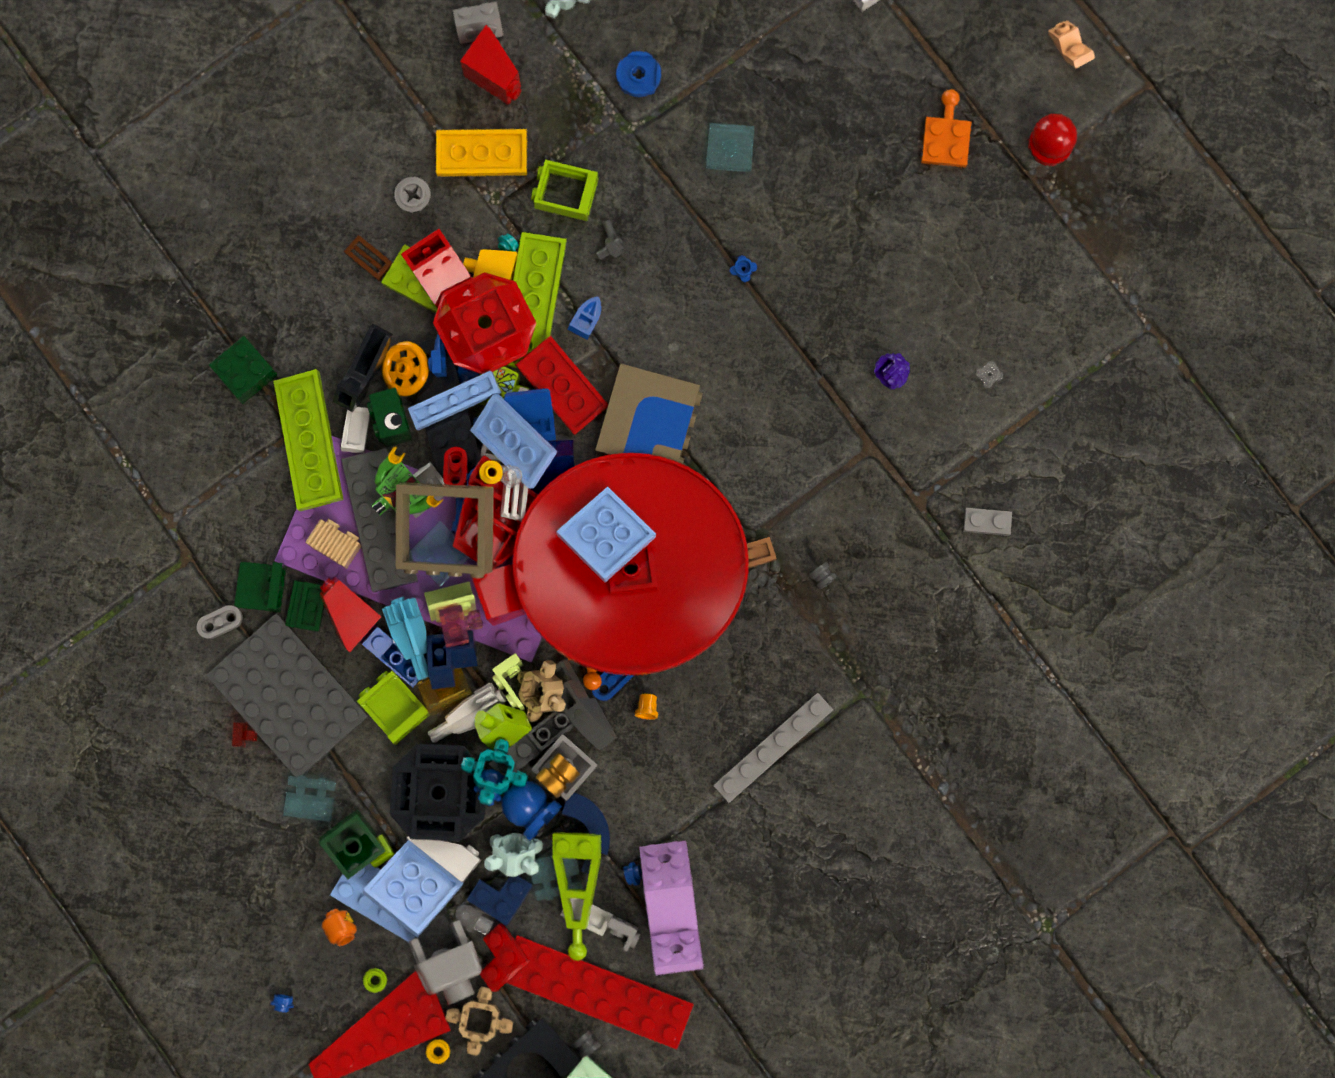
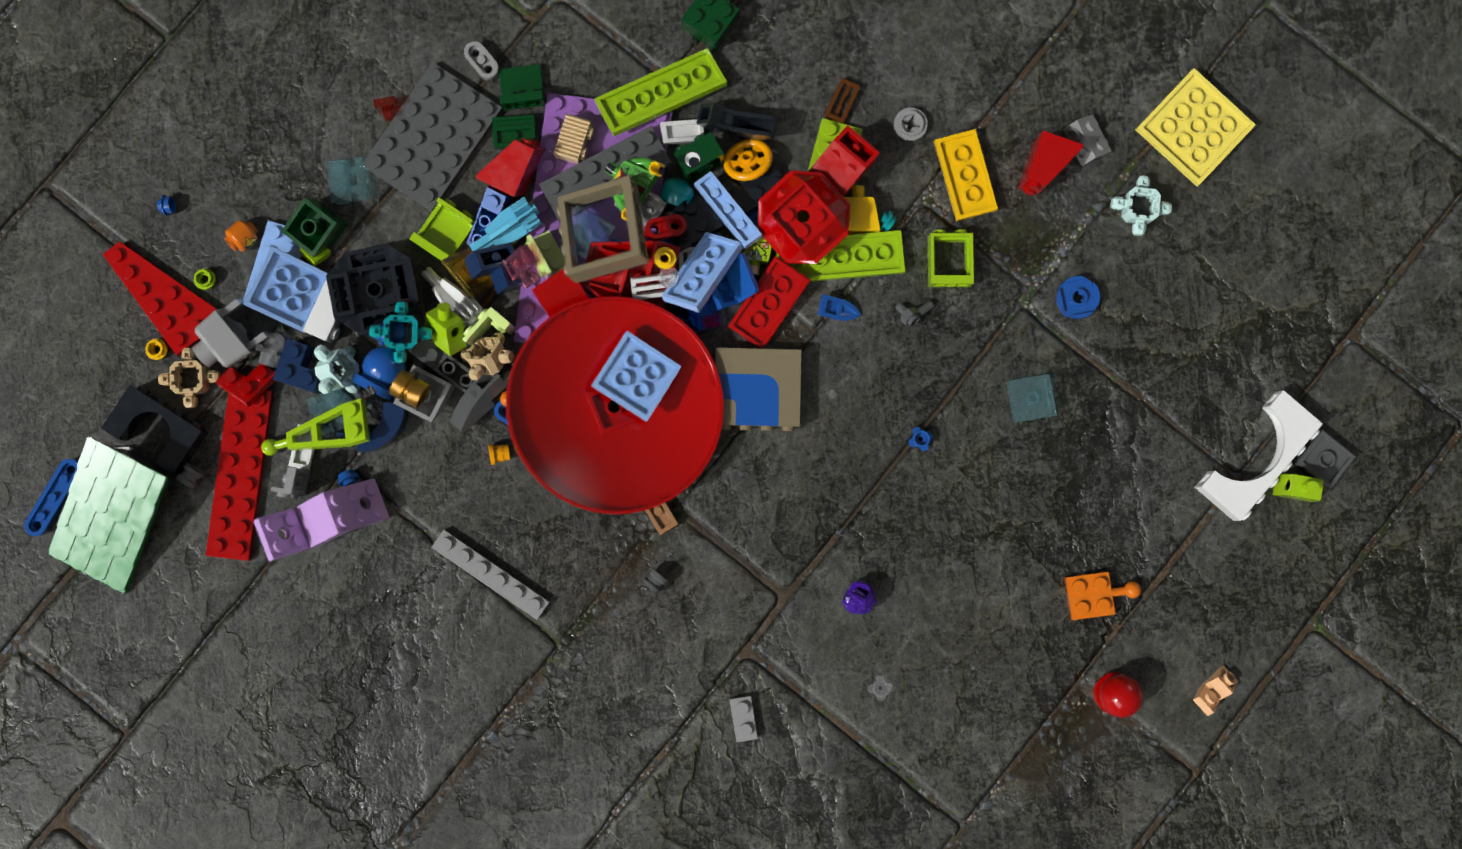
camera: 70 degrees right, 5 degrees up
(419, 450) = (676, 191): none -> teal hair
(437, 362) = (759, 186): blue plate -> none

